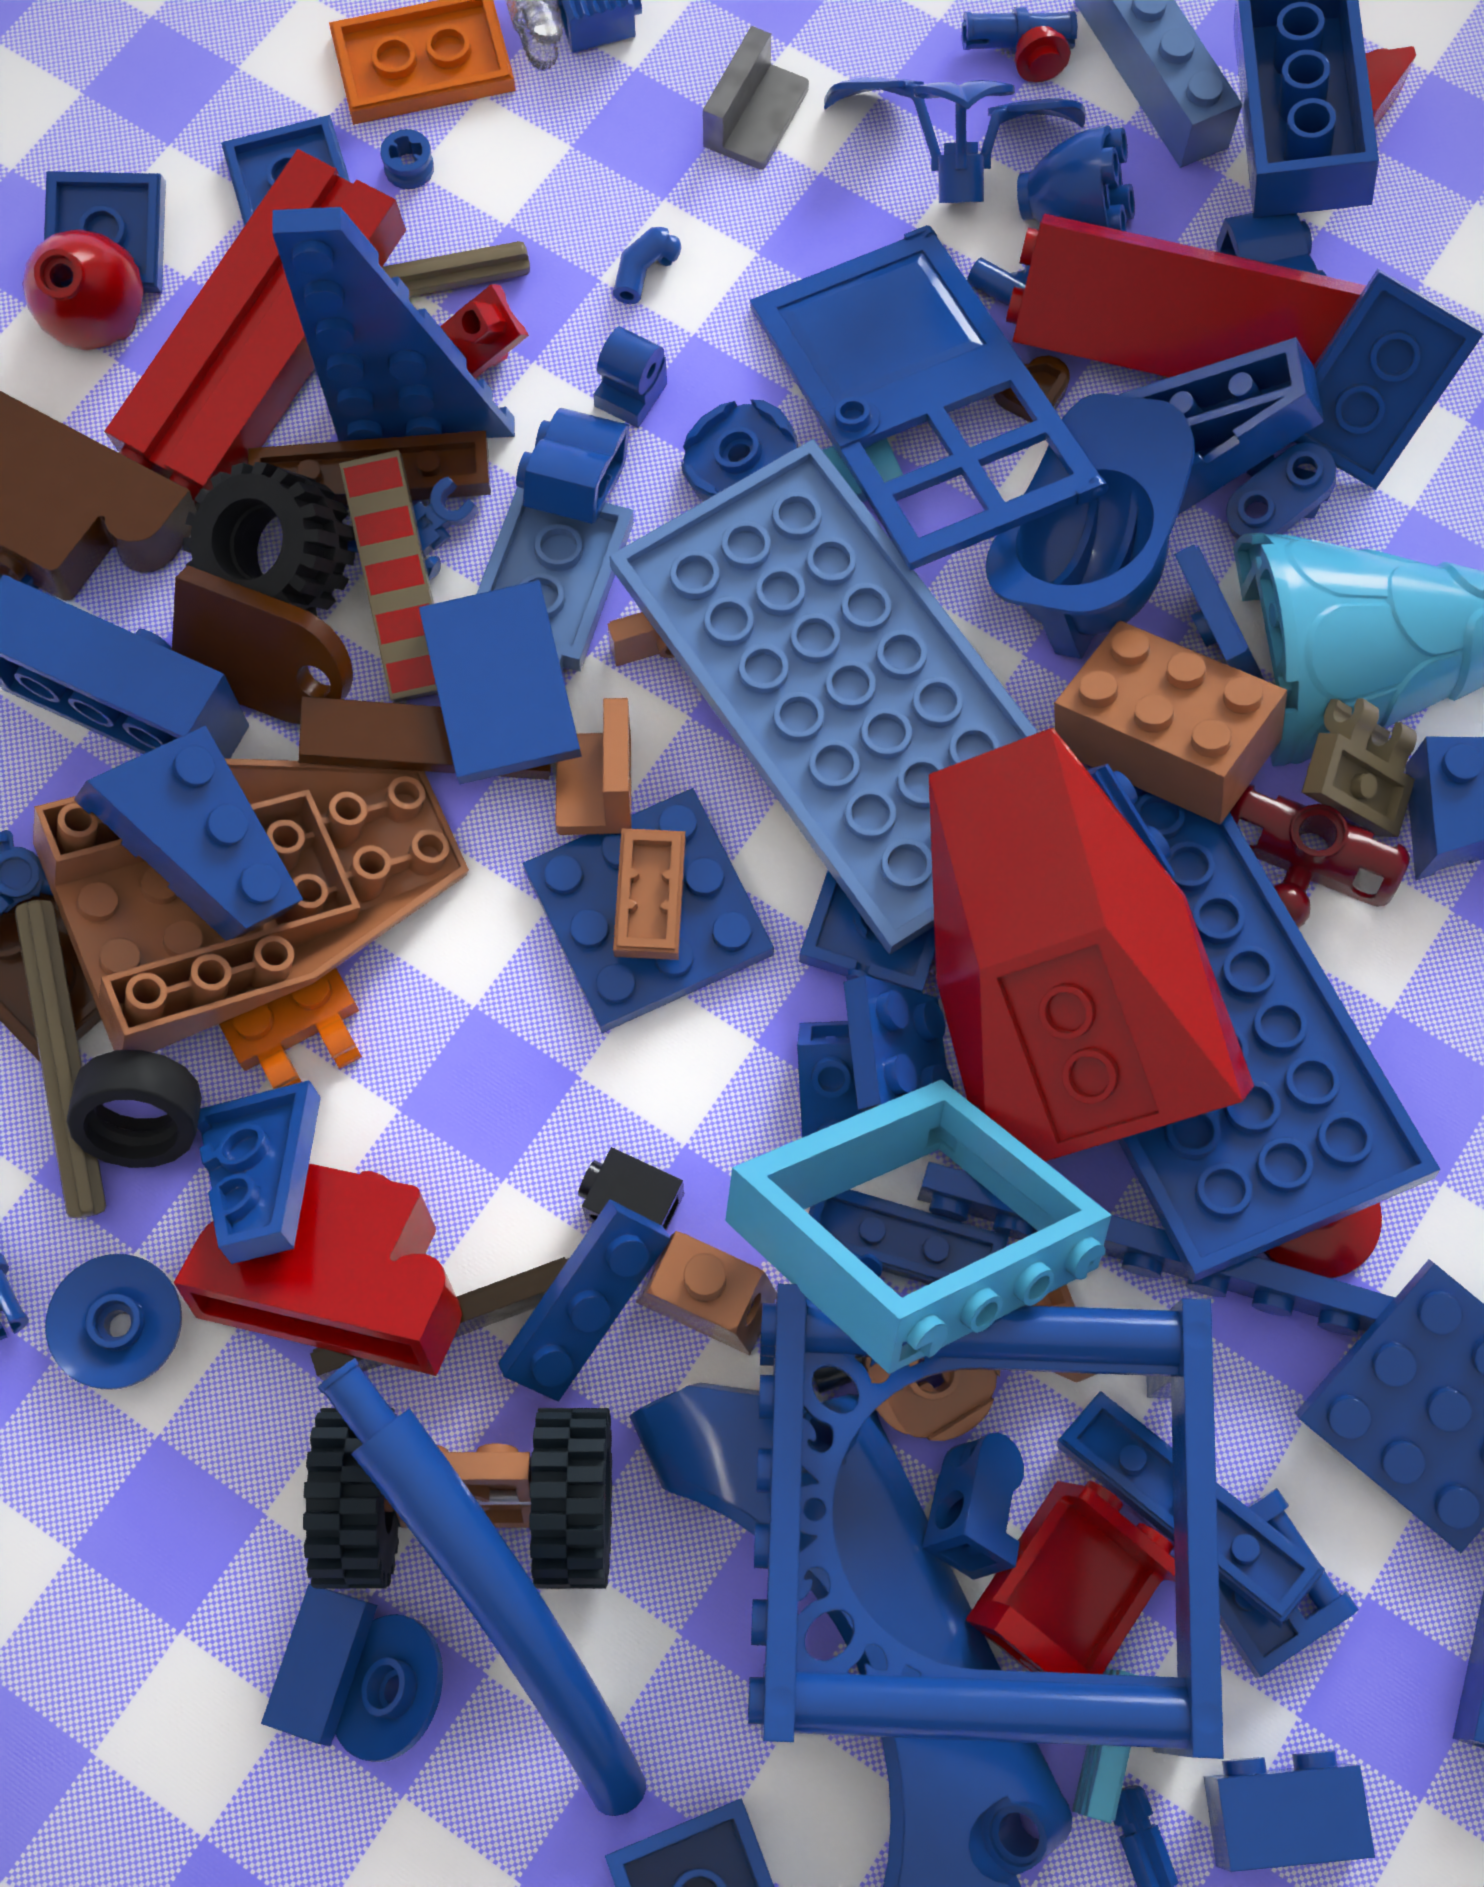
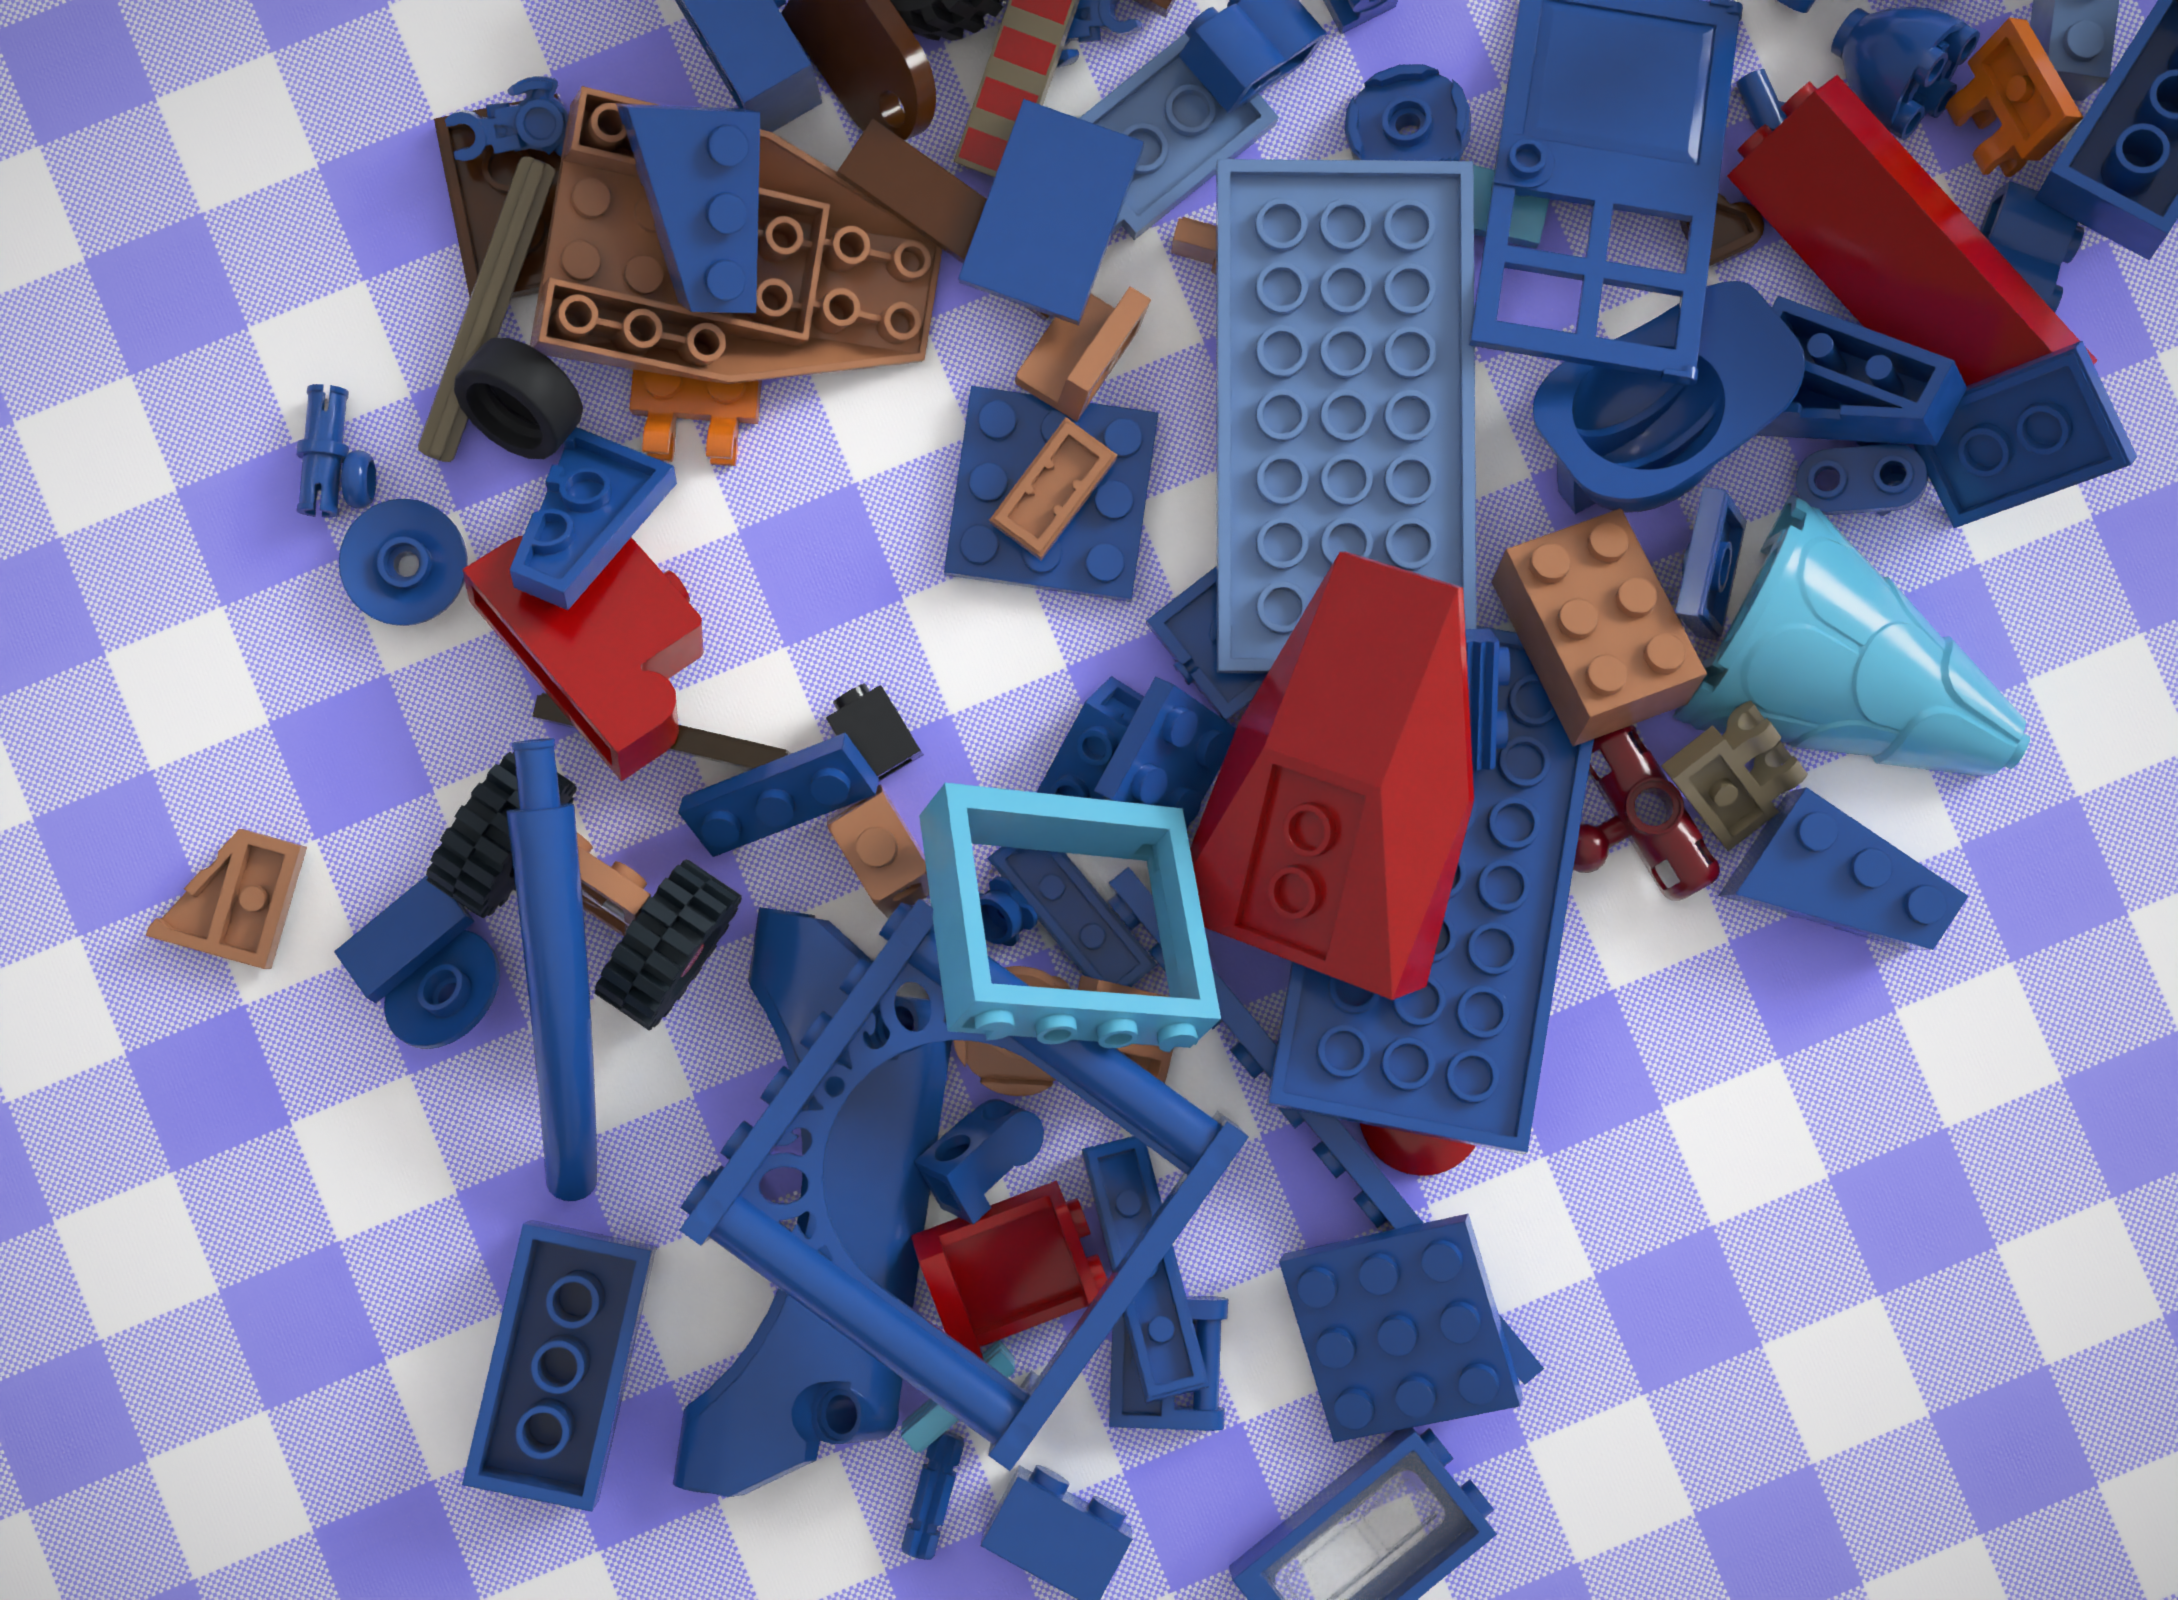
camera: 30 degrees right, 15 degrees up
(29, 1276) = (358, 479): none -> blue piece
(140, 1738) = (238, 901): none -> nougat wing
(1191, 146) = (2023, 91): none -> orange plate

